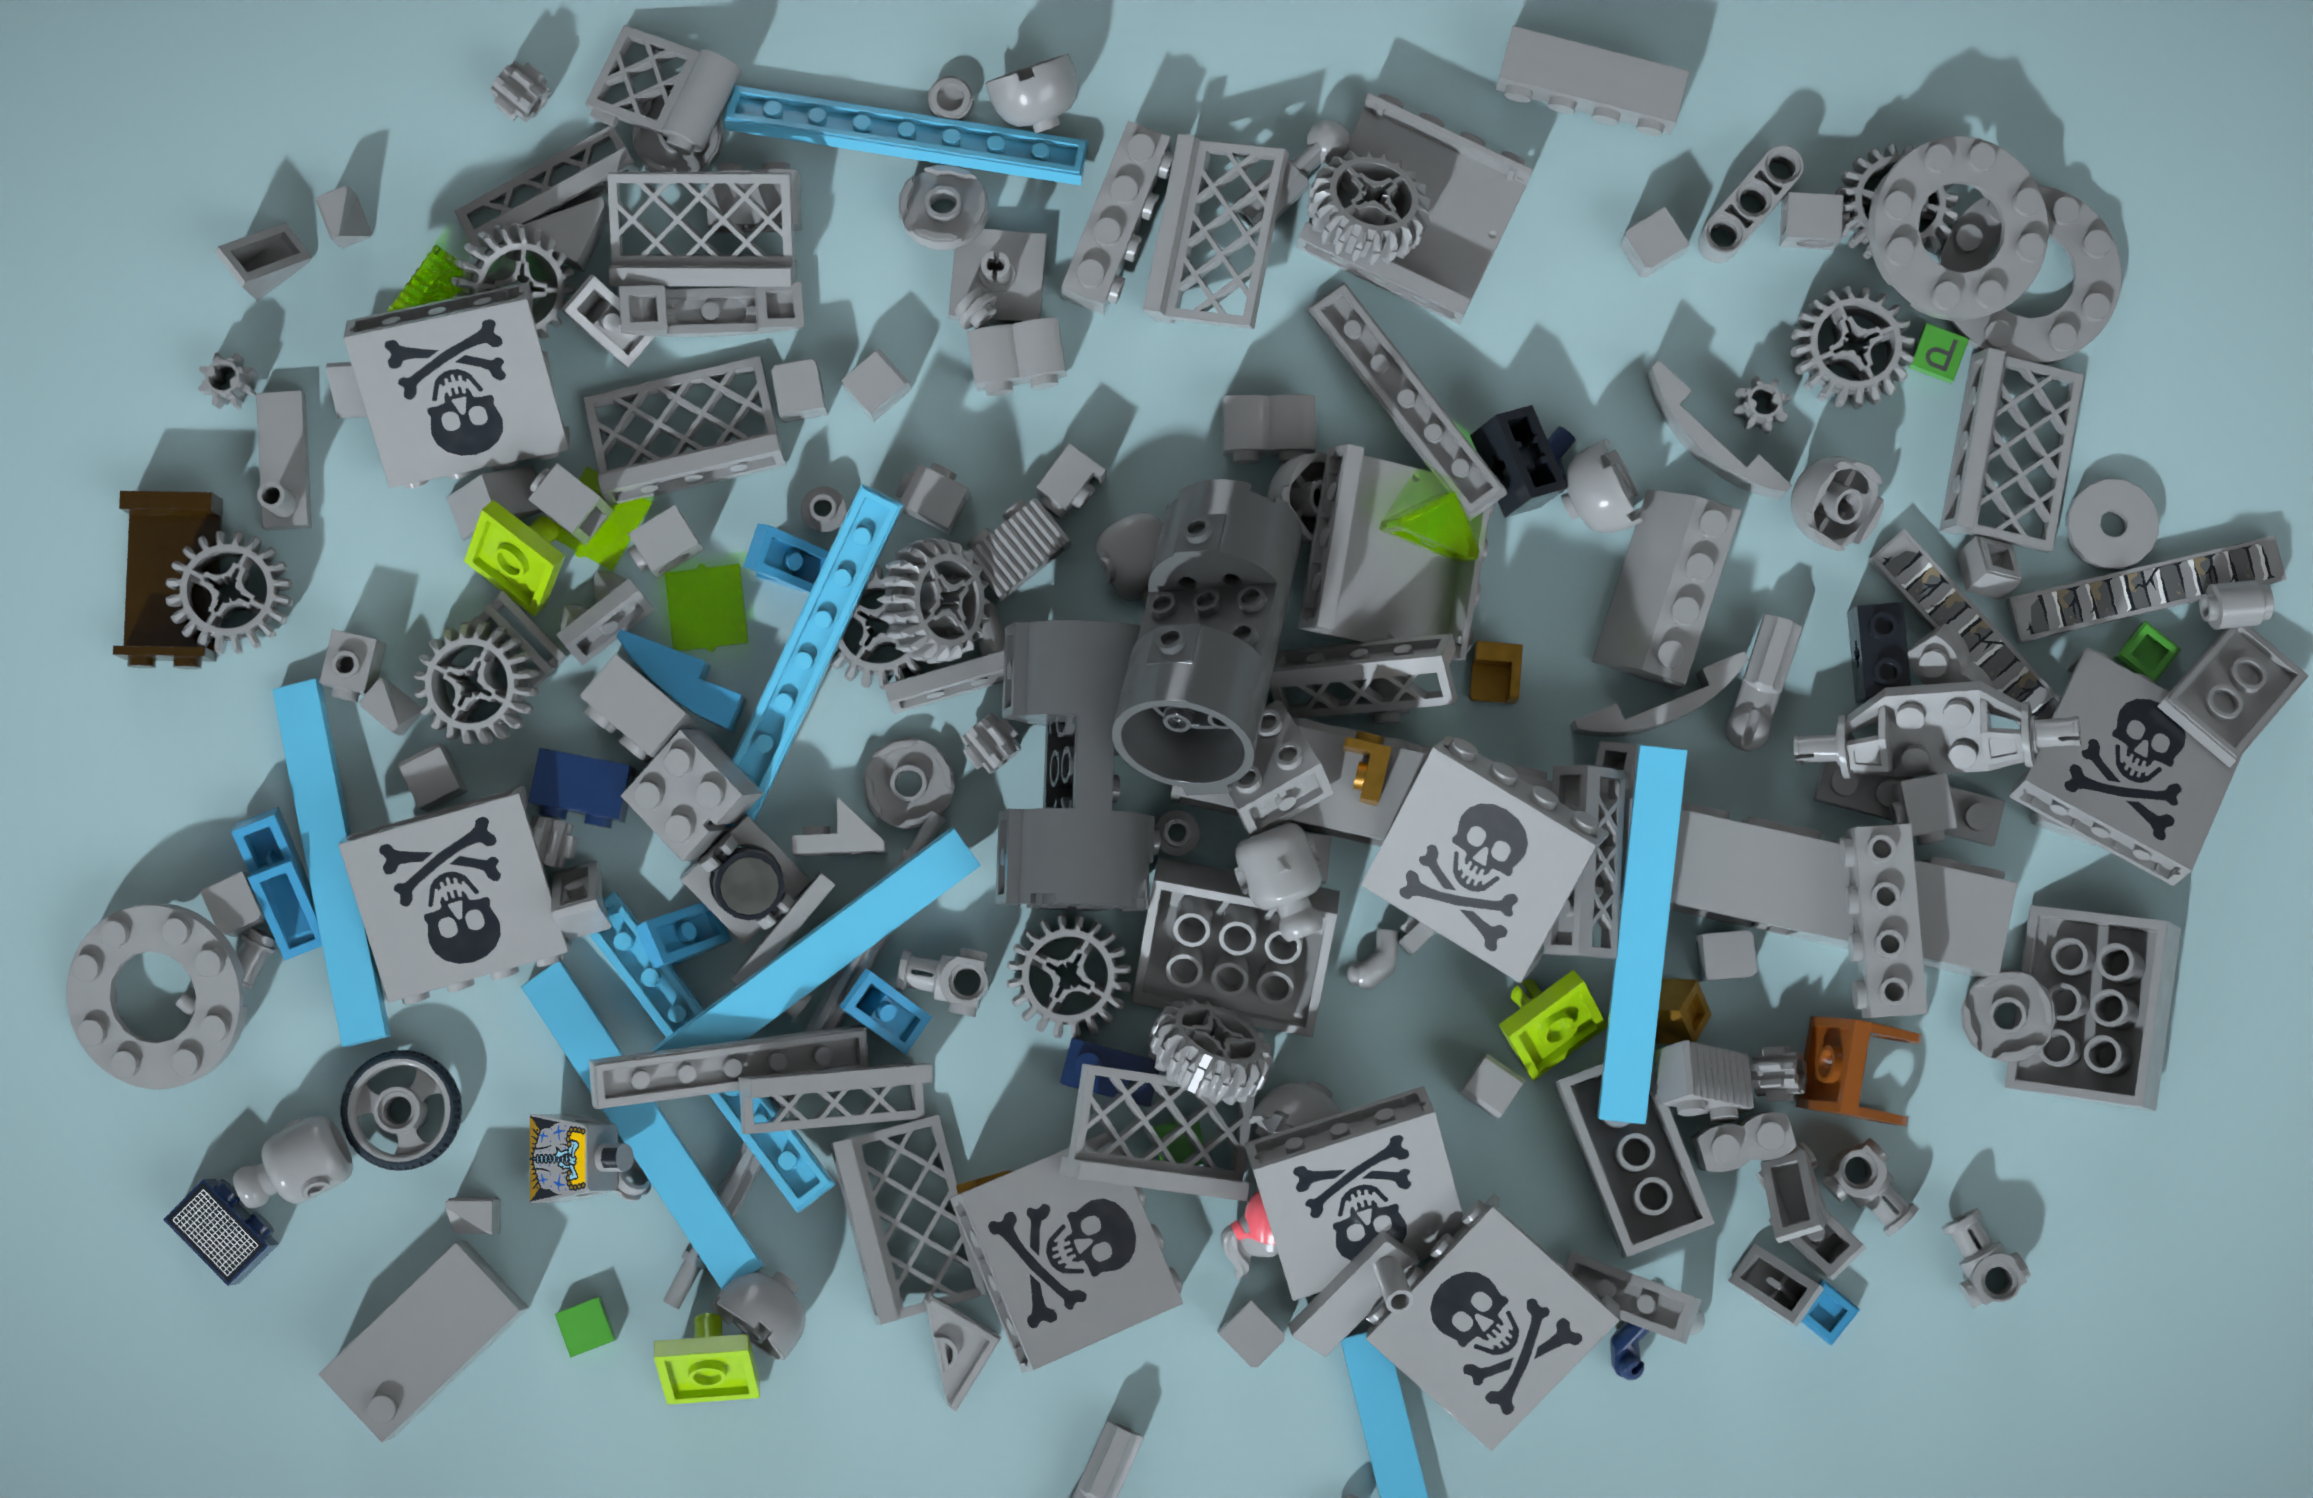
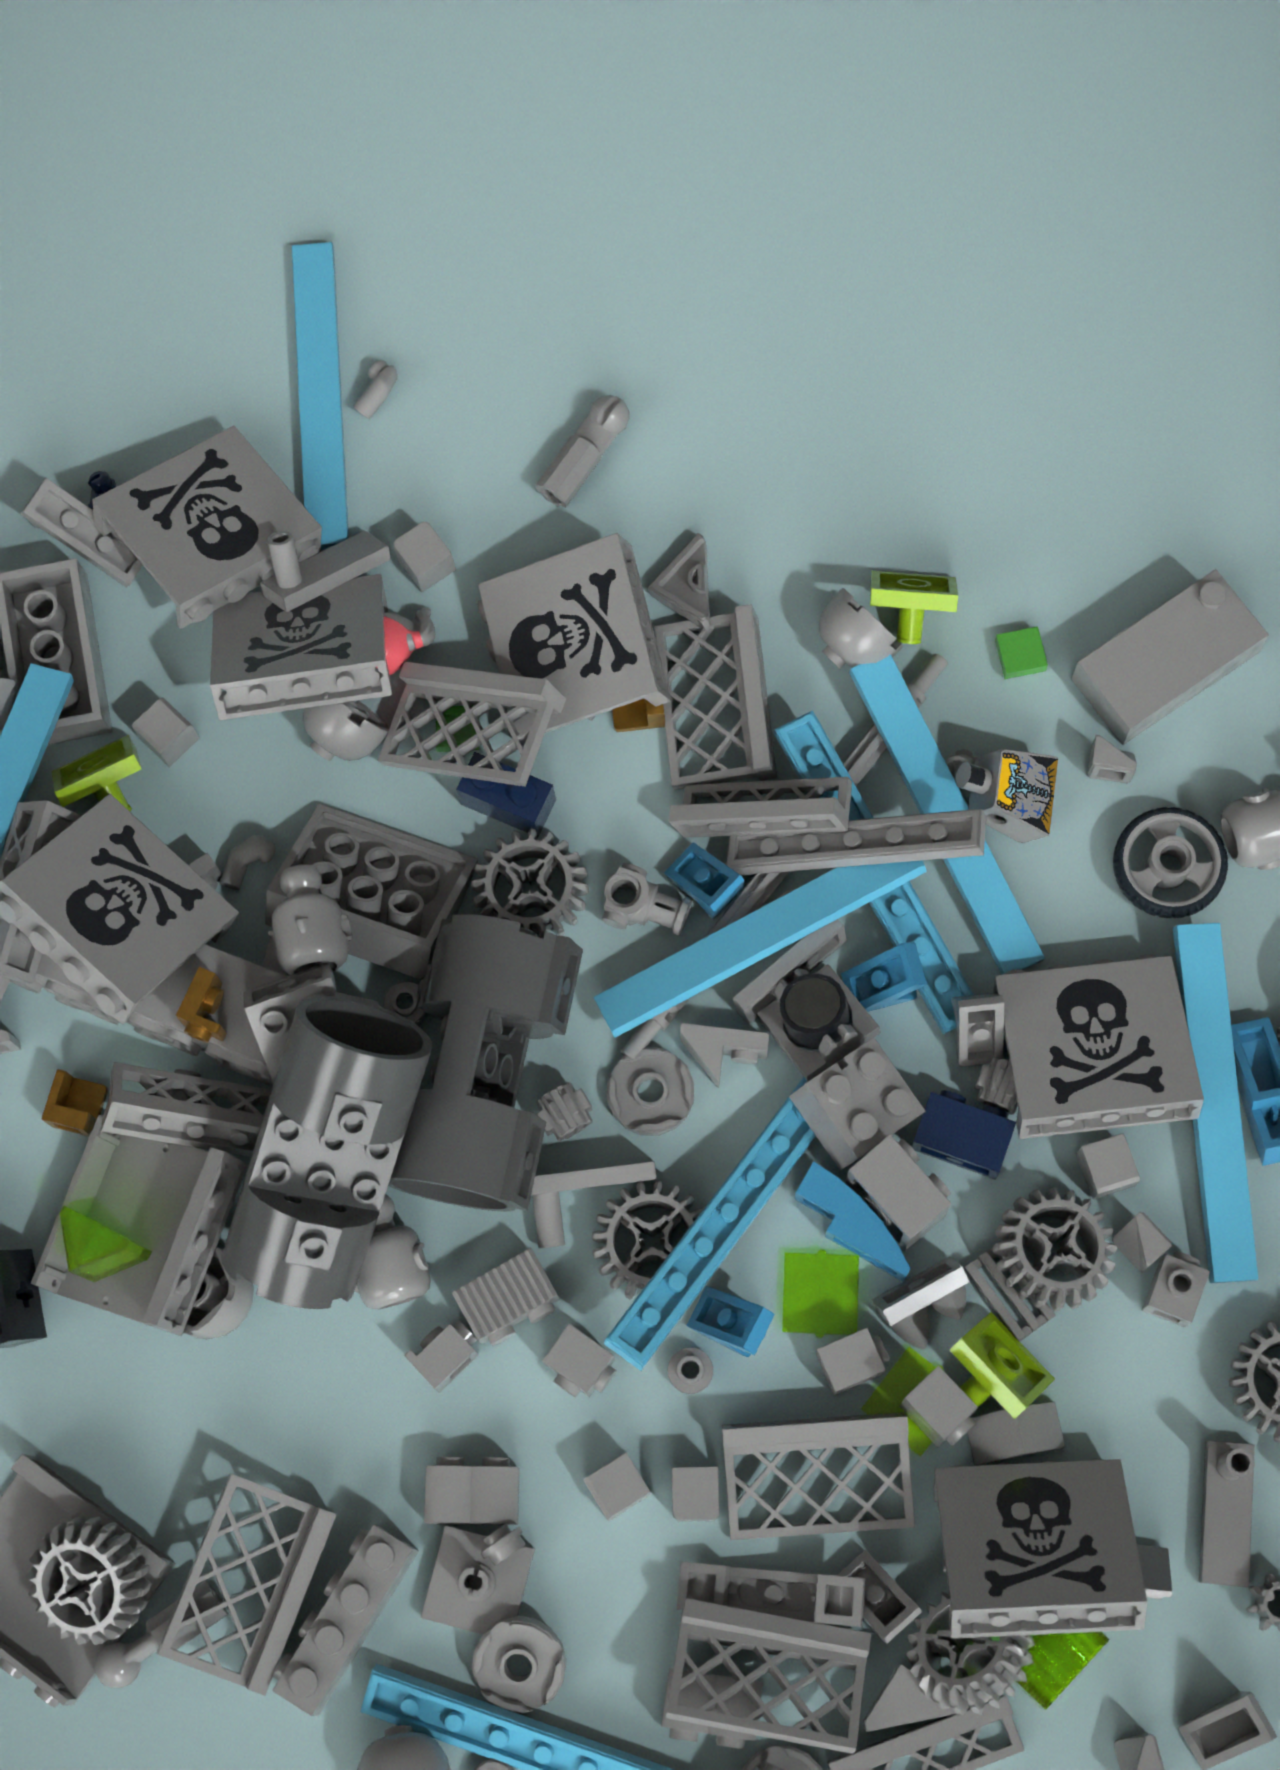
camera: 165 degrees left, 10 degrees down
(944, 601) = (592, 1246): light grey gear -> none
(1209, 1051) = (410, 792): light grey gear -> none
(1268, 427) = (238, 1377): light grey brick -> none
(1407, 401) = (98, 1380): light grey tile -> none

